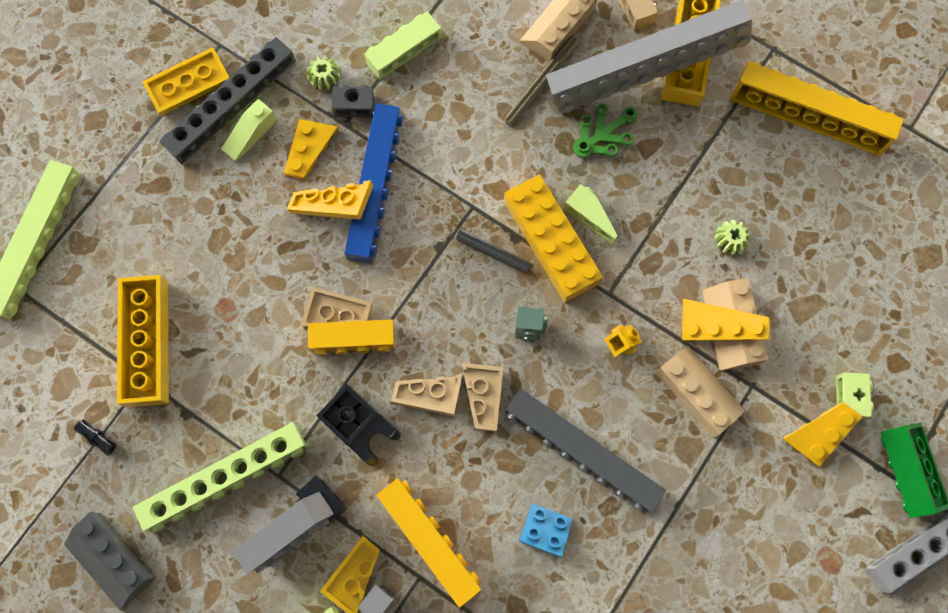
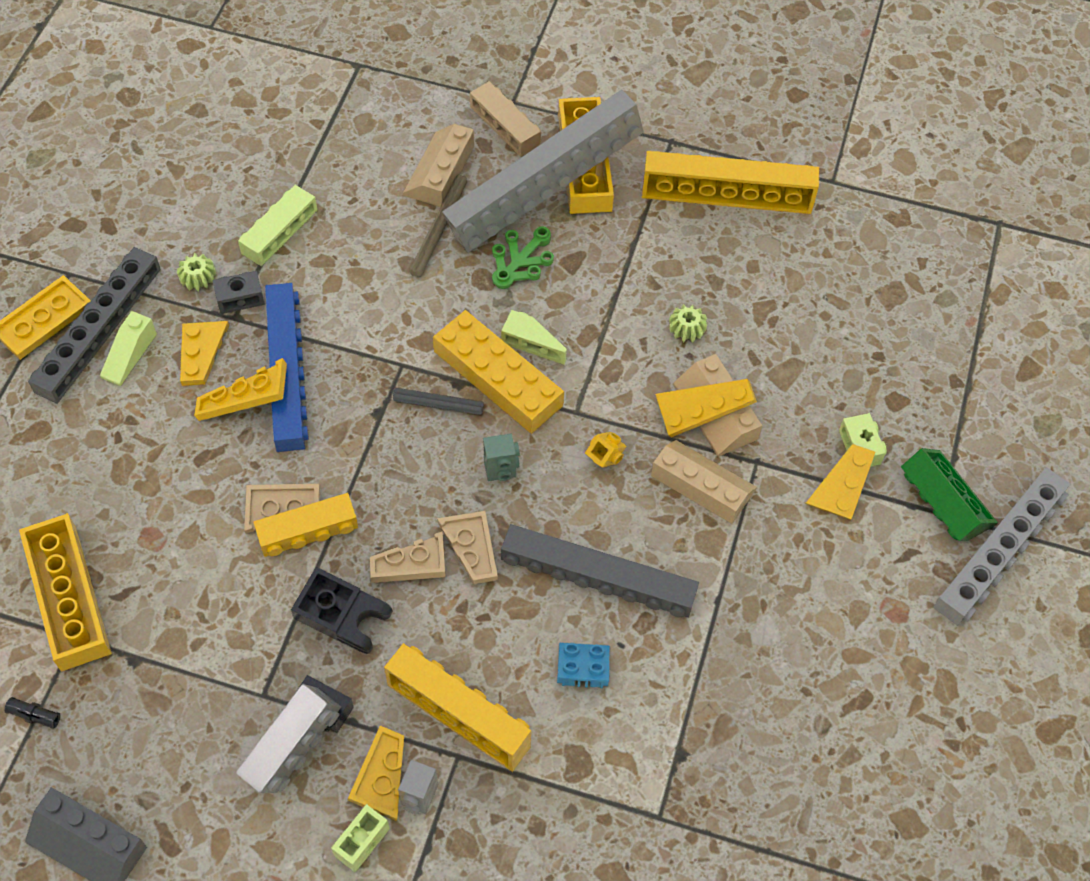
camera: 20 degrees left, 15 degrees down
(148, 510) = (181, 714): yellowish green brick -> none

